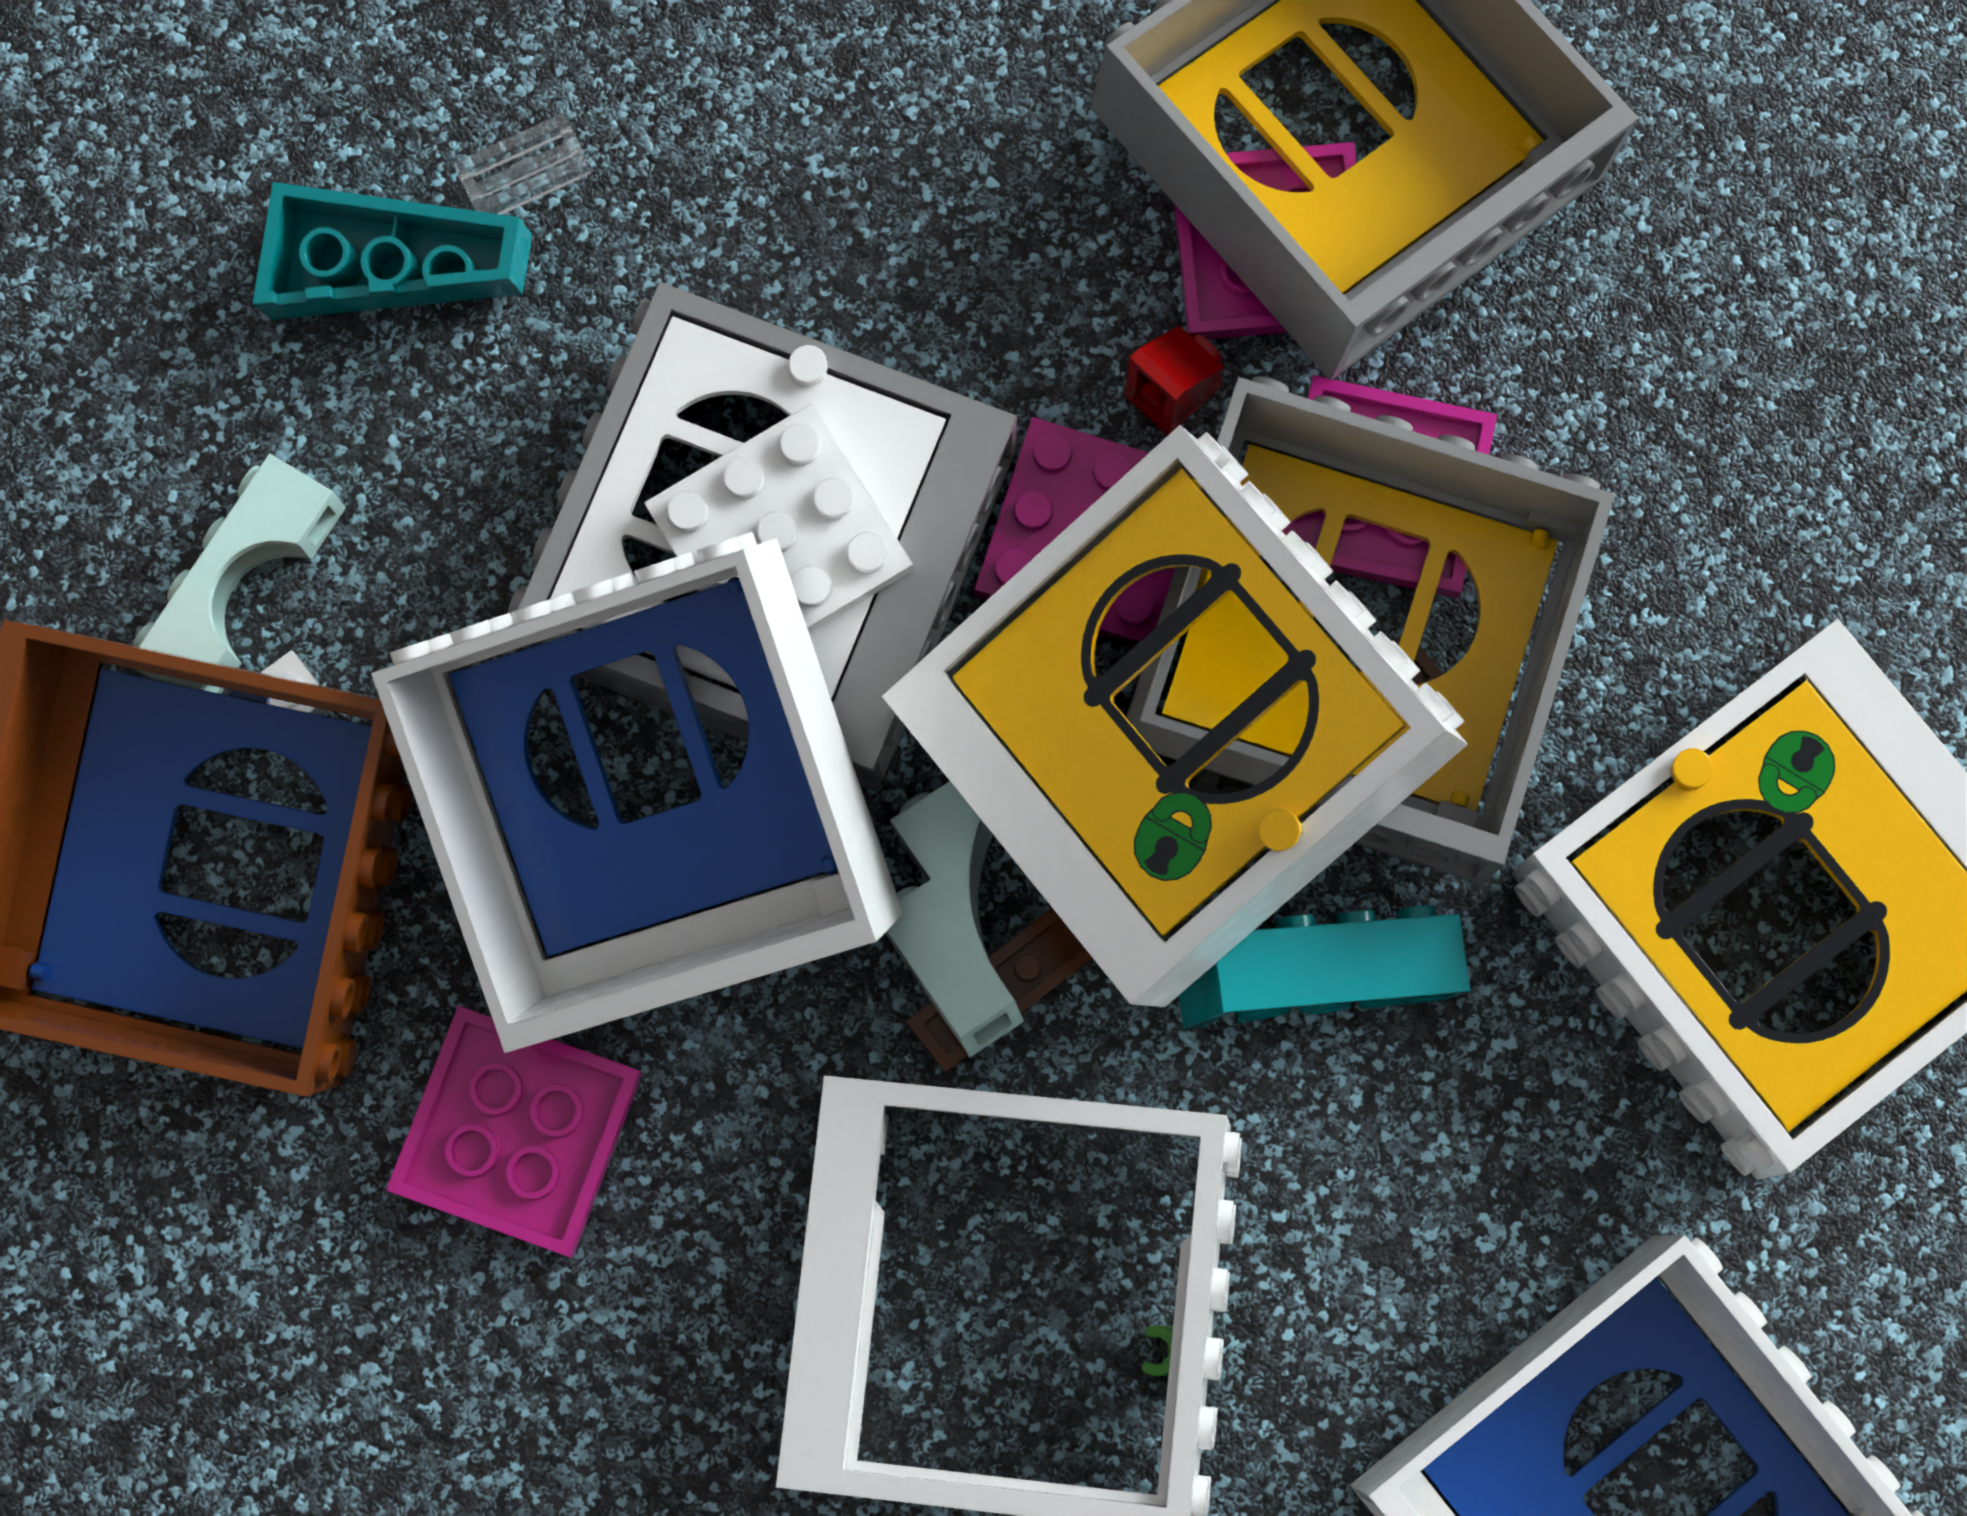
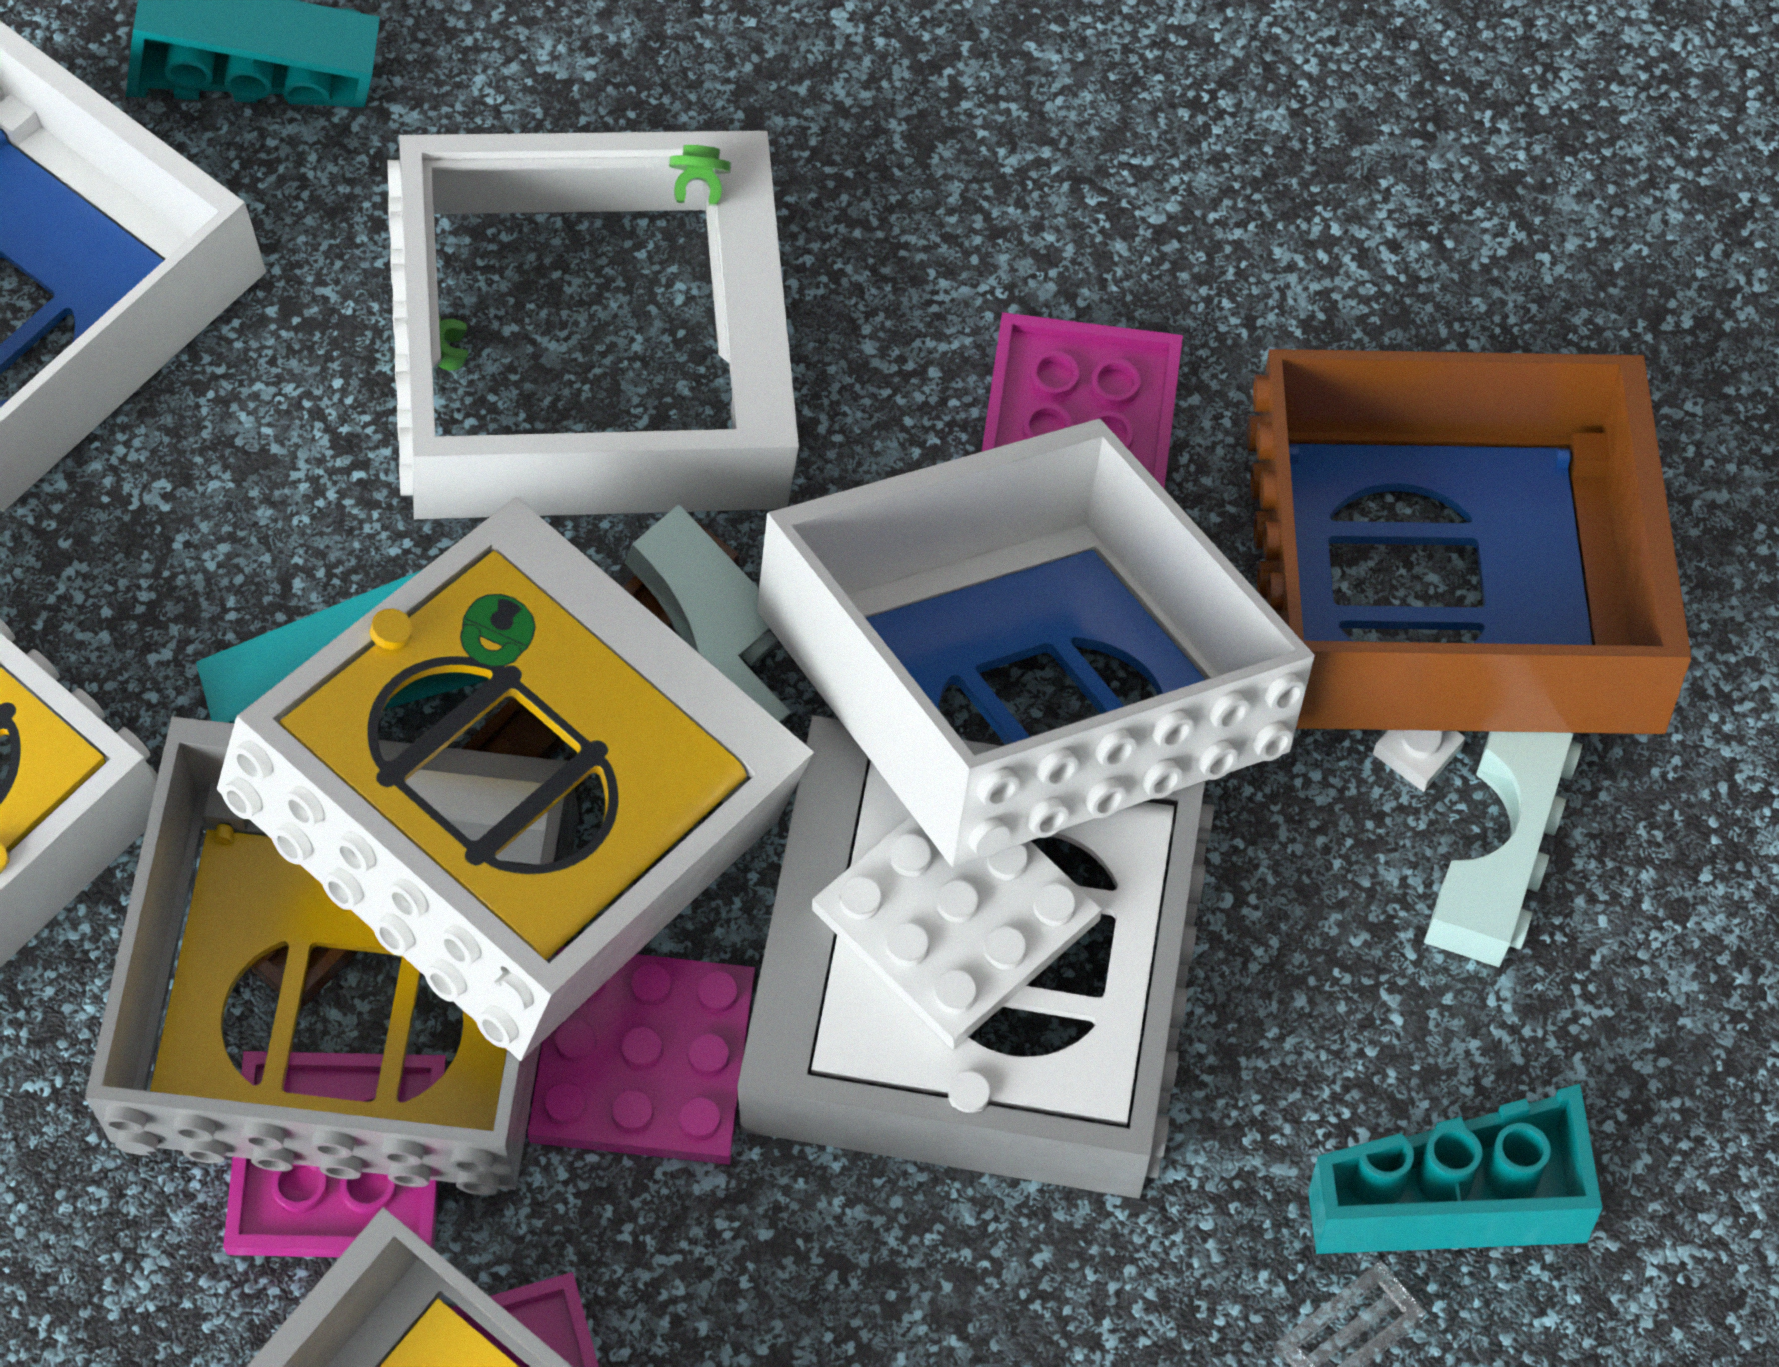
camera: 165 degrees right, 15 degrees down
(863, 1429) = (701, 164): none -> bright green plate
(1173, 377) = (580, 1210): red slope -> none

